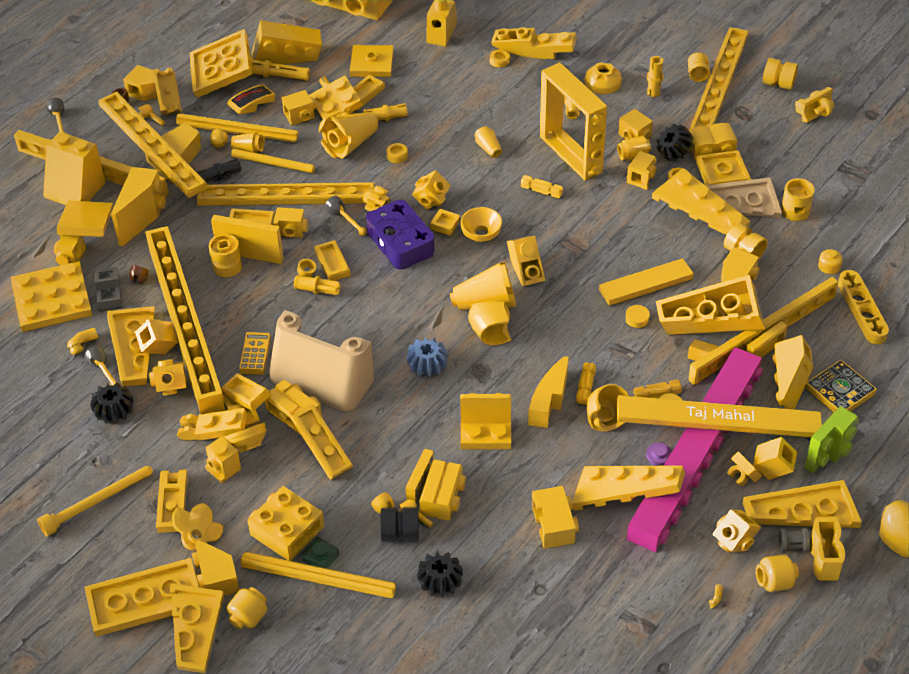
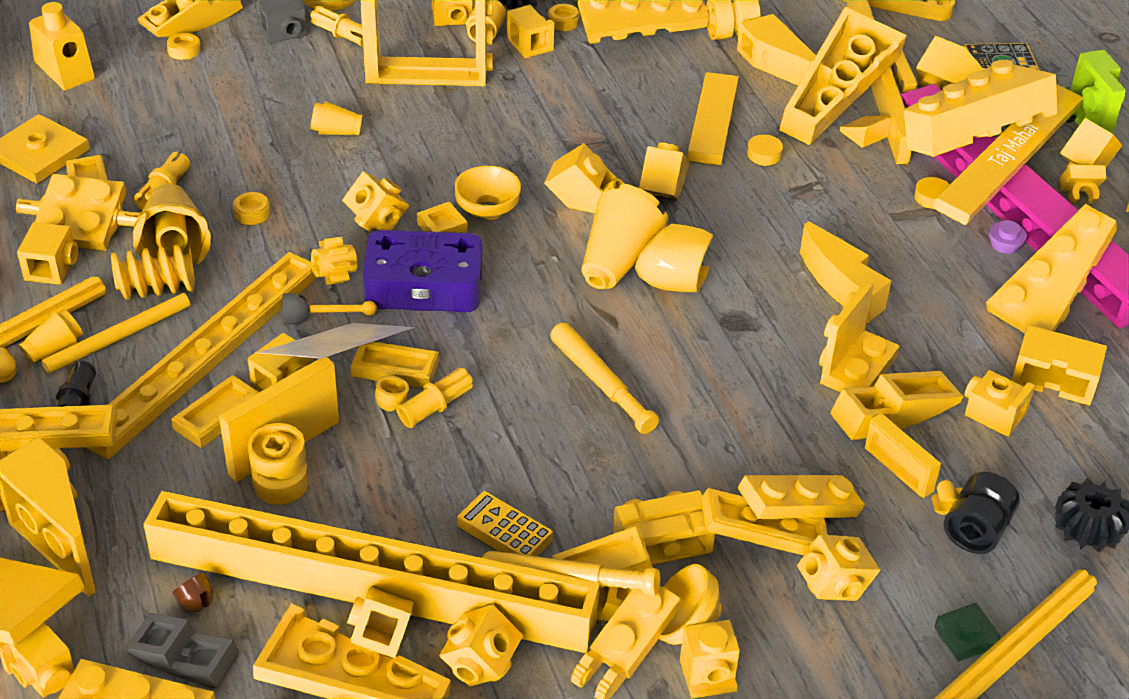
camera: 60 degrees left, 5 degrees down
(222, 371) = (647, 581): none -> yellow piece
(285, 523) = (900, 636): yellow brick -> none
(310, 228) = (335, 340): none -> white sticker
(312, 480) = (838, 567): none -> yellow brick
(314, 147) = (153, 272): none -> yellow piece
(322, 370) = (631, 453): tan windscreen -> none
(350, 446) = (800, 496): none -> yellow plate
(382, 501) = (921, 517): yellow hinge -> none
(390, 329) = (596, 369): none -> yellow piece
(427, 357) = (683, 350): medium blue gear -> none
(442, 490) = (947, 440): yellow brick -> none
(476, 465) = (899, 396): none -> yellow slope
(499, 498) = (997, 402): none -> yellow brick
(542, 186) = (464, 118): yellow axle -> none
(565, 283) = (664, 171): none -> yellow slope
(585, 383) = (845, 234): yellow axle -> none
(603, 407) = (913, 231): yellow piece -> none
(658, 389) = (901, 190): yellow axle -> none
(730, 379) = (979, 107): none -> yellow wedge

